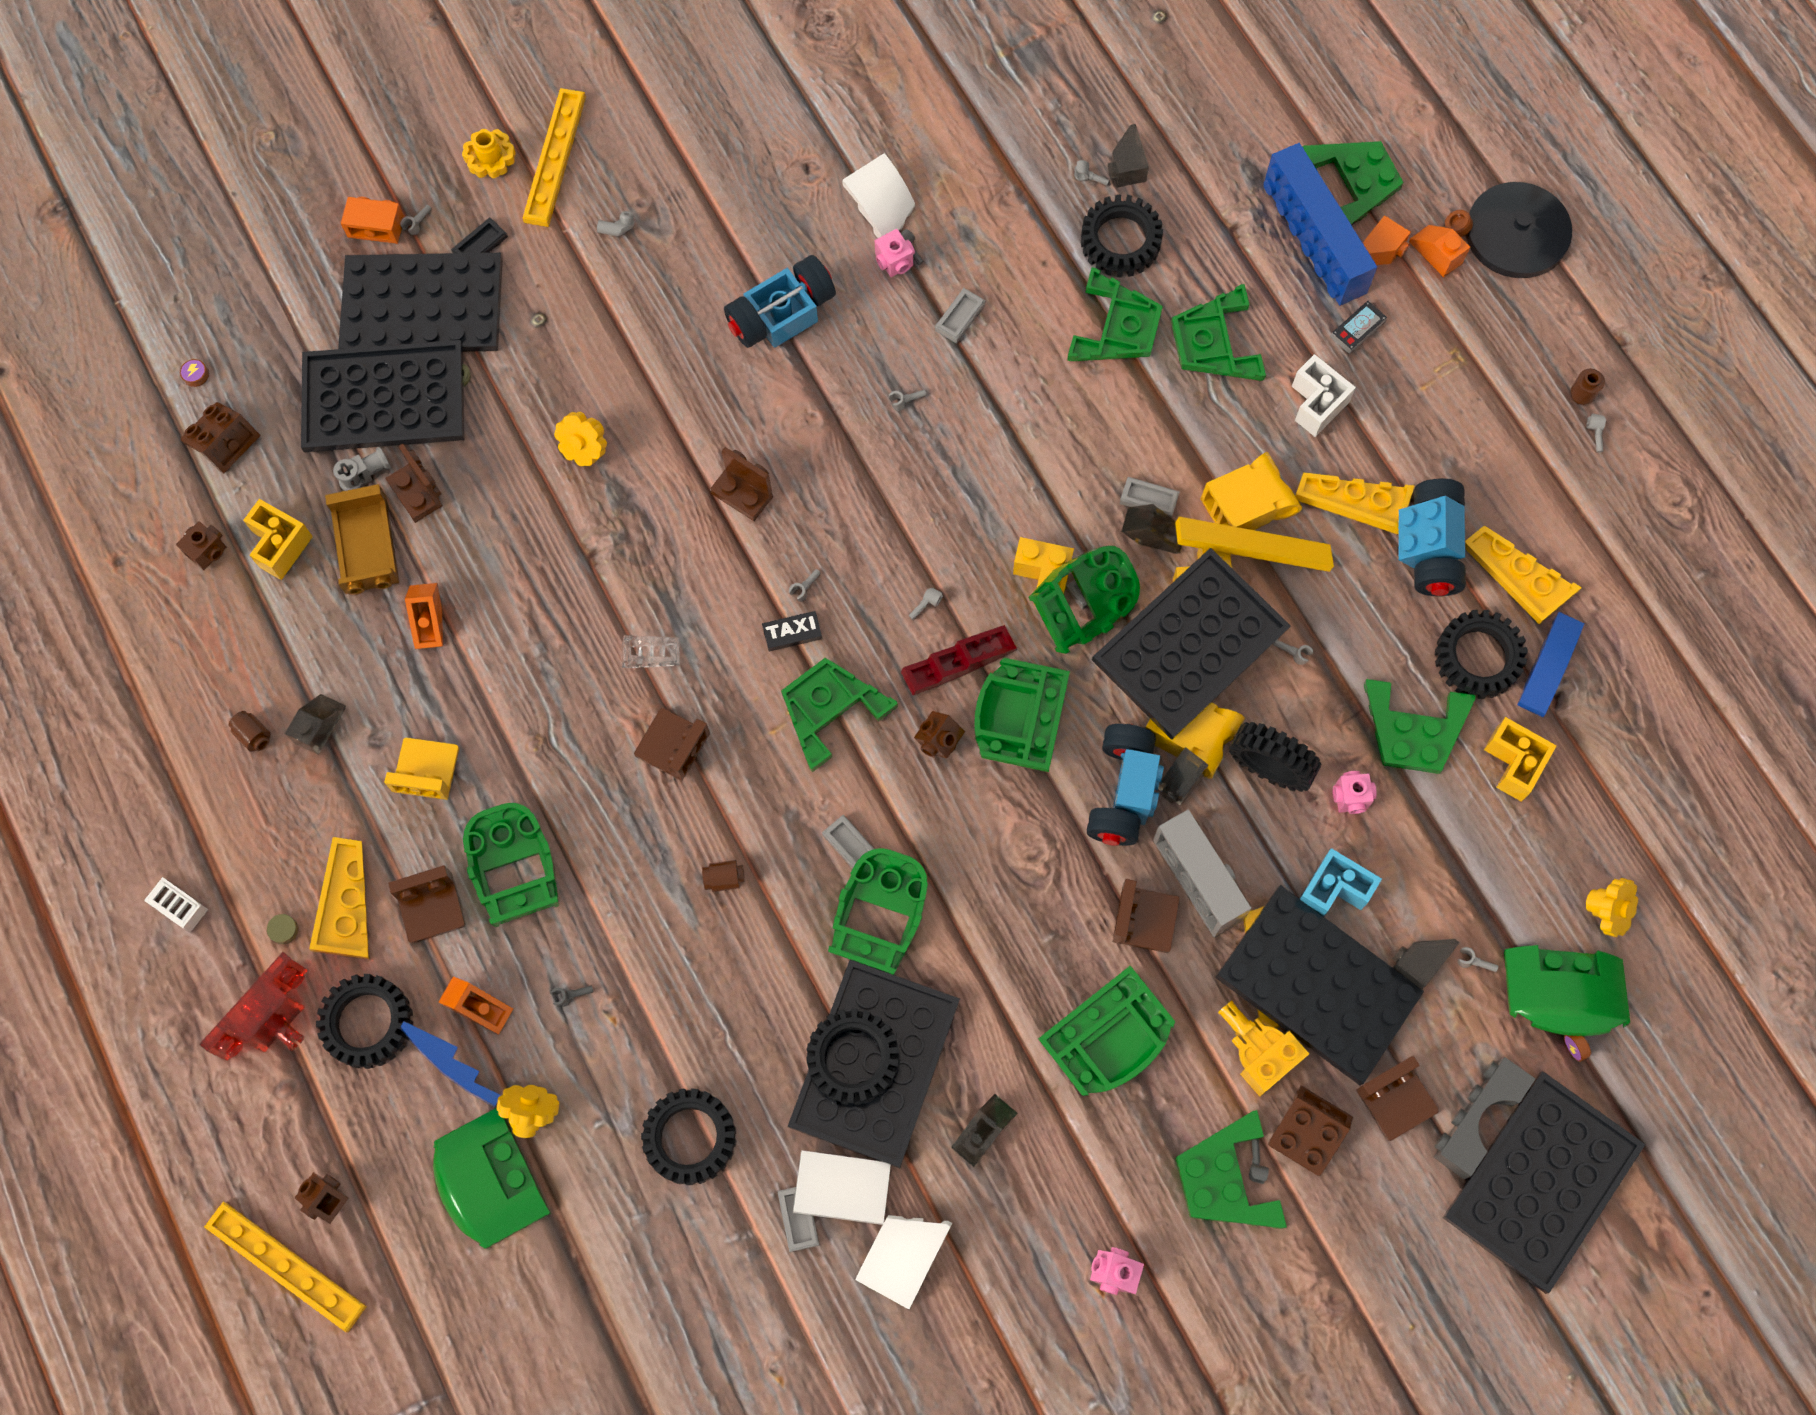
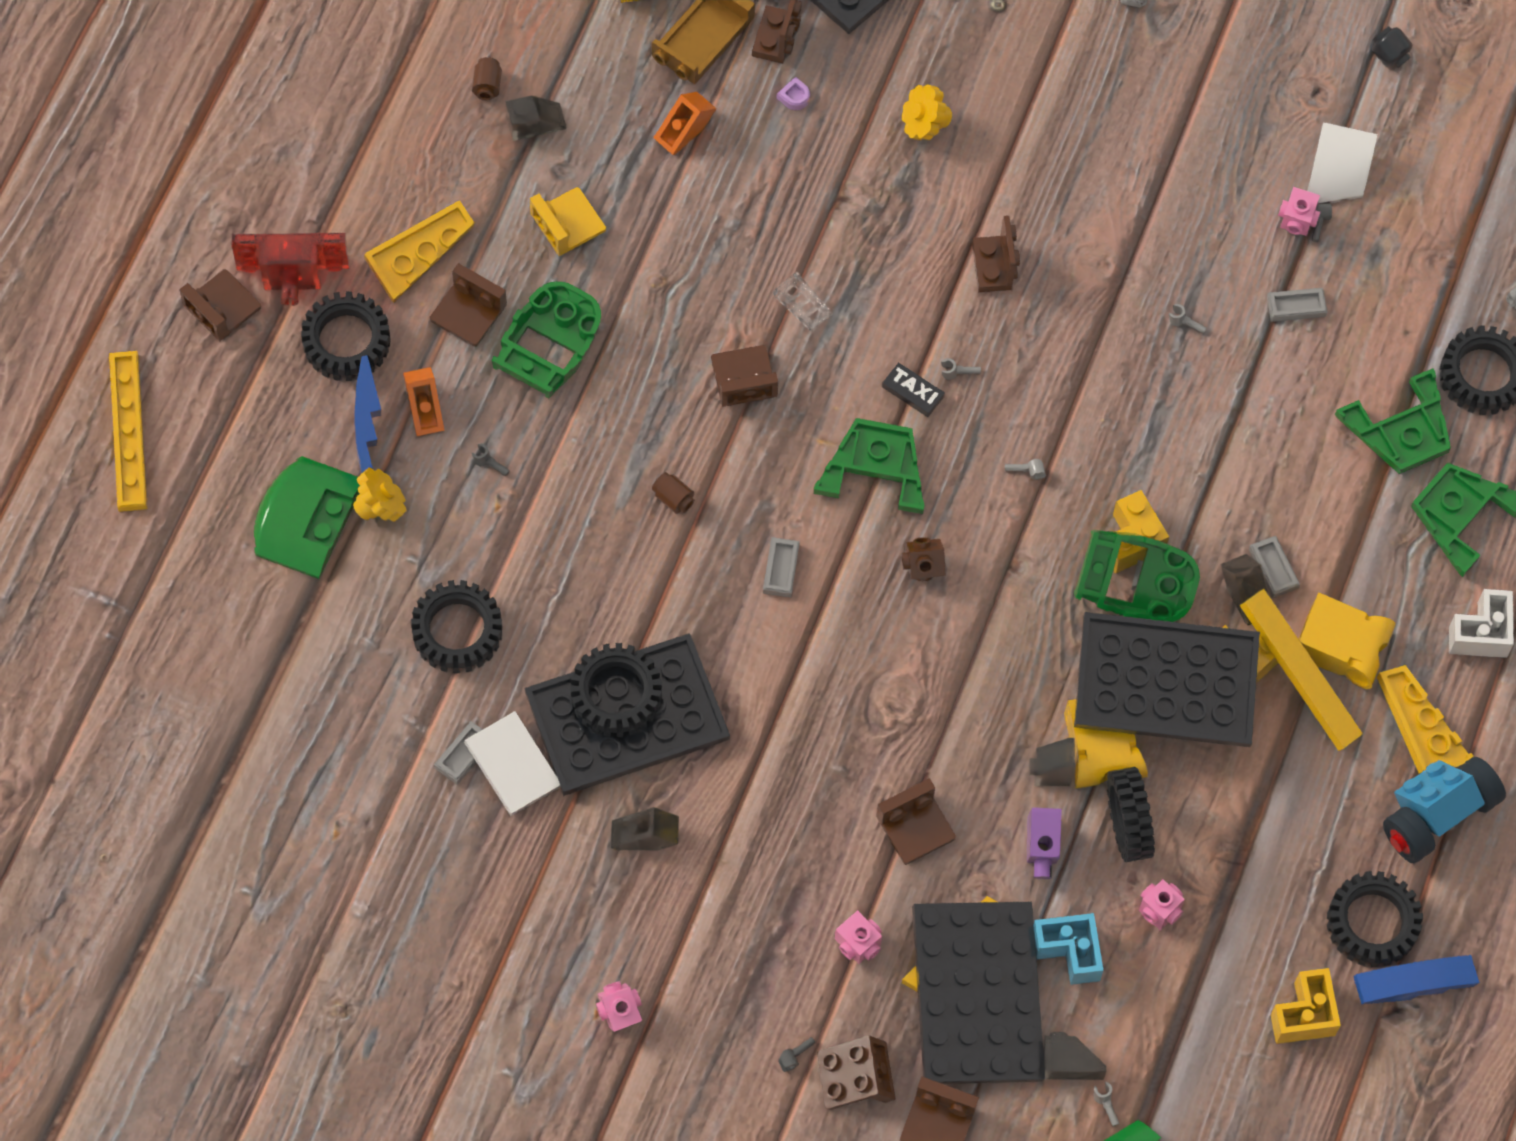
camera: 45 degrees right, 5 degrees down
(193, 915) = (321, 157): white slope -> none
(245, 1099) = (220, 304): none -> reddish brown bracket
(282, 929) = (363, 225): olive tile -> none
(321, 1197) = (196, 410): reddish brown brick -> none
(476, 518) = (794, 95): none -> lavender tile
(781, 304) = (1171, 163): brick -> none
(821, 90) = (1392, 47): none -> black head
(888, 882) = (774, 613): green slope -> none
(902, 1257) = (497, 845): white slope -> none
(958, 660) = (1002, 529): dark red slope -> none
(1020, 713) = (998, 605): green slope -> none
(1110, 1035) = (798, 865): green slope -> none
(1135, 787) = (1010, 732): brick -> none
(1198, 1044) = (859, 938): none -> bright pink brick
(1201, 873) = (986, 834): light grey brick -> none
(1215, 1183) = (754, 1032): green wing -> none
(1237, 835) = (1045, 829): none -> medium lavender torso
(1262, 1049) = (885, 994): yellow brick -> none
(1295, 651) = (1244, 773): light grey hand -> none
(1415, 739) = (1254, 923): green wing -> none
(1527, 581) = (1475, 908): yellow wing -> none

